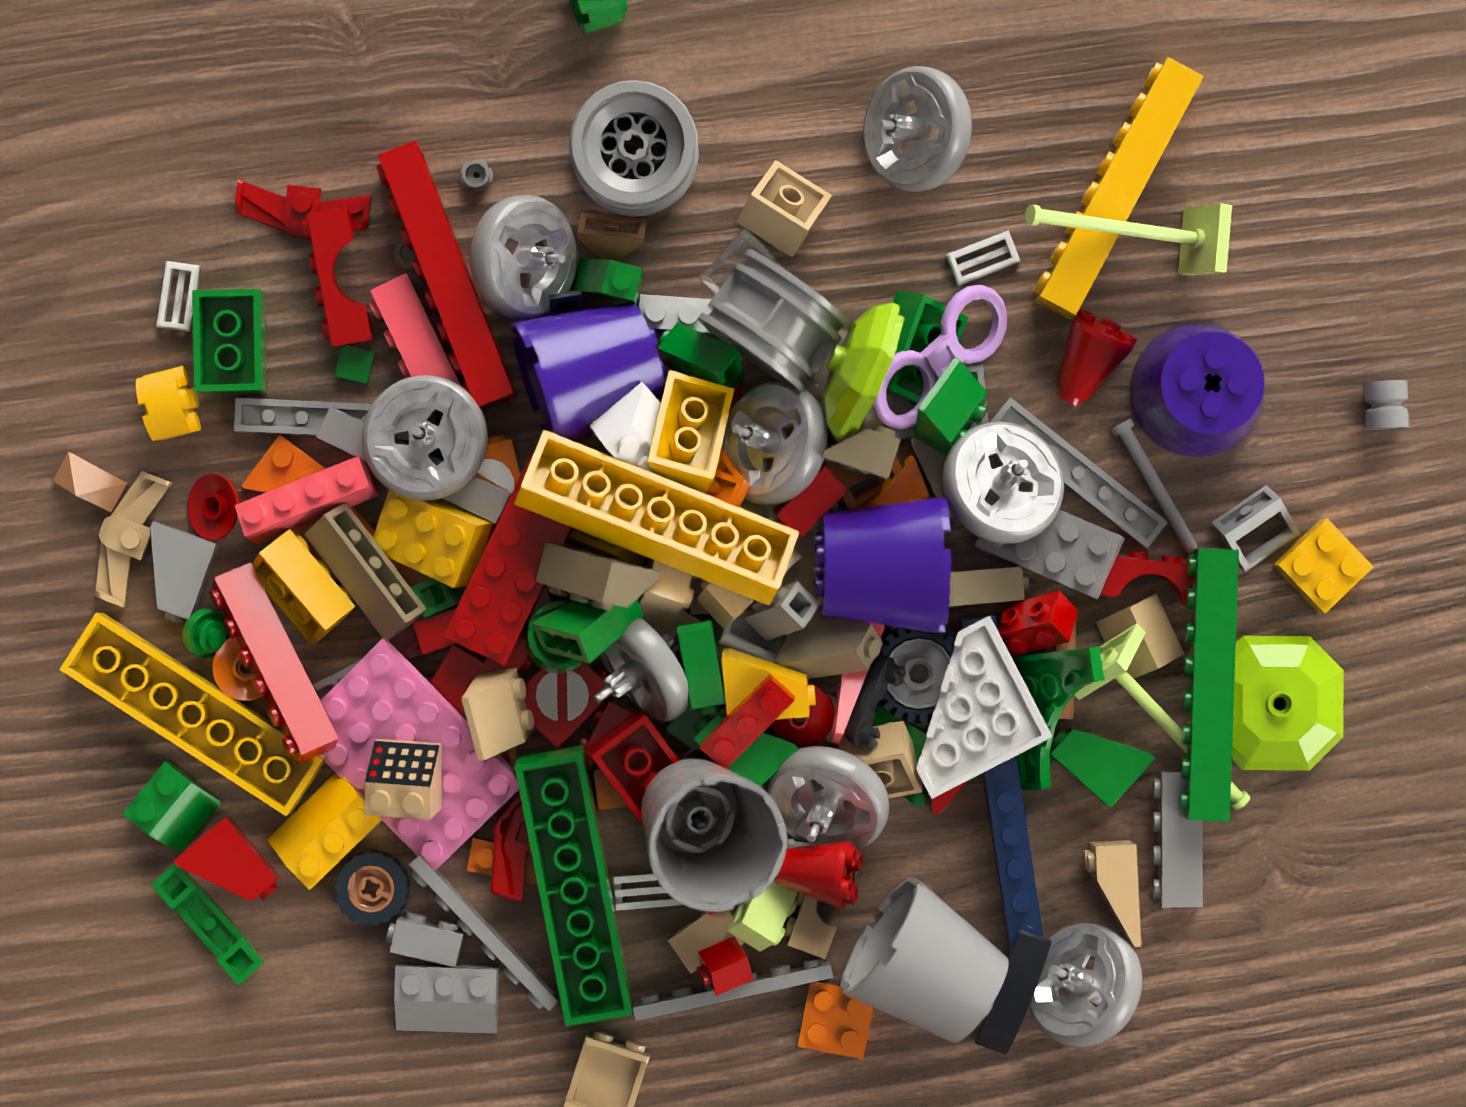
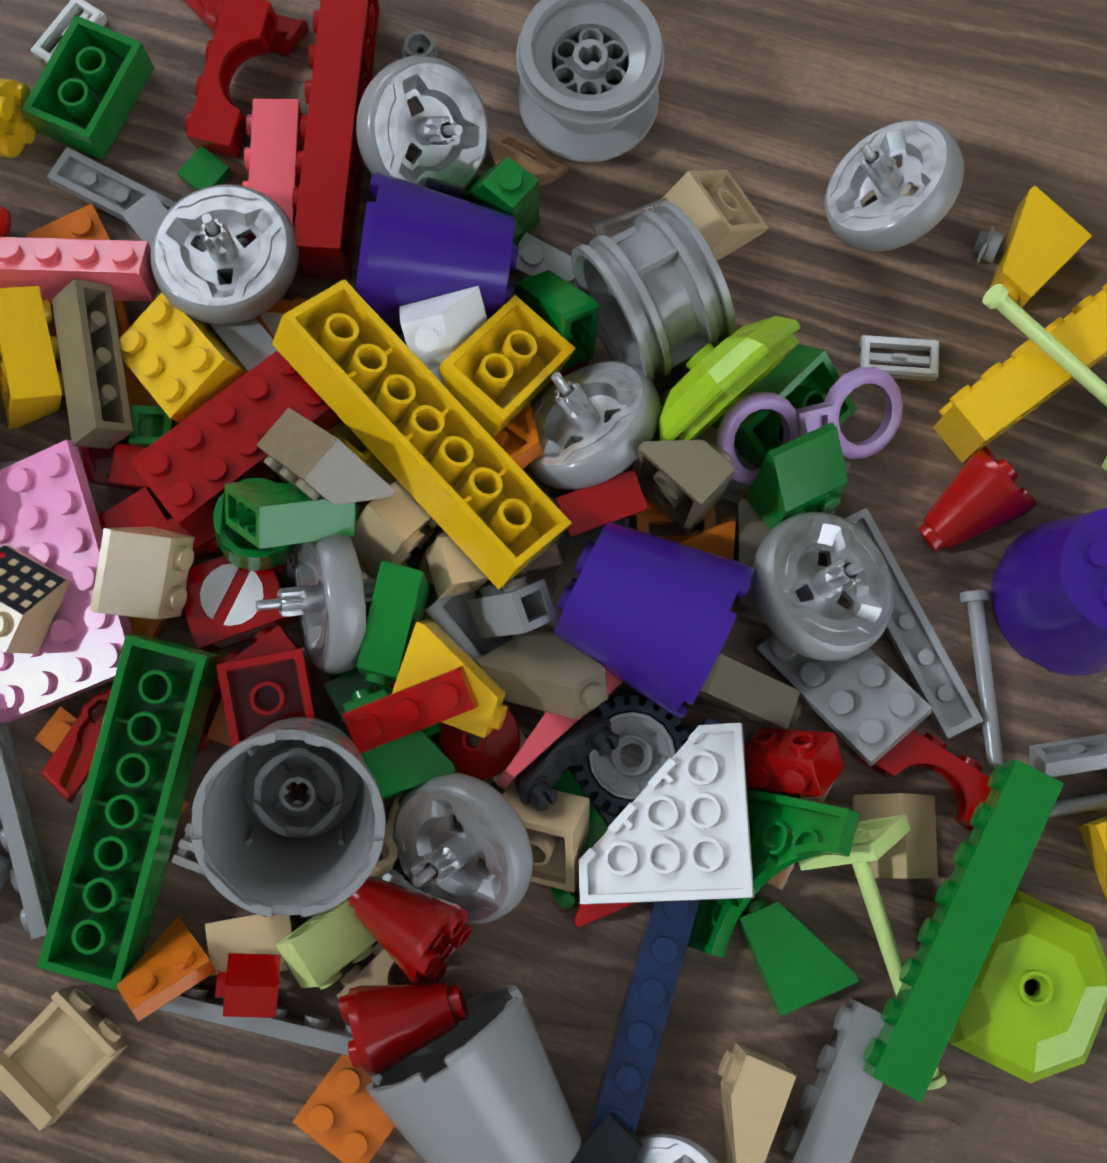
camera: 25 degrees right, 10 degrees down
(657, 985) = (165, 971): none -> orange wing
(844, 938) = (398, 1020): none -> red cone
(1013, 130) = (988, 245): none -> light grey plate
(1053, 119) = (1037, 246): none -> yellow slope

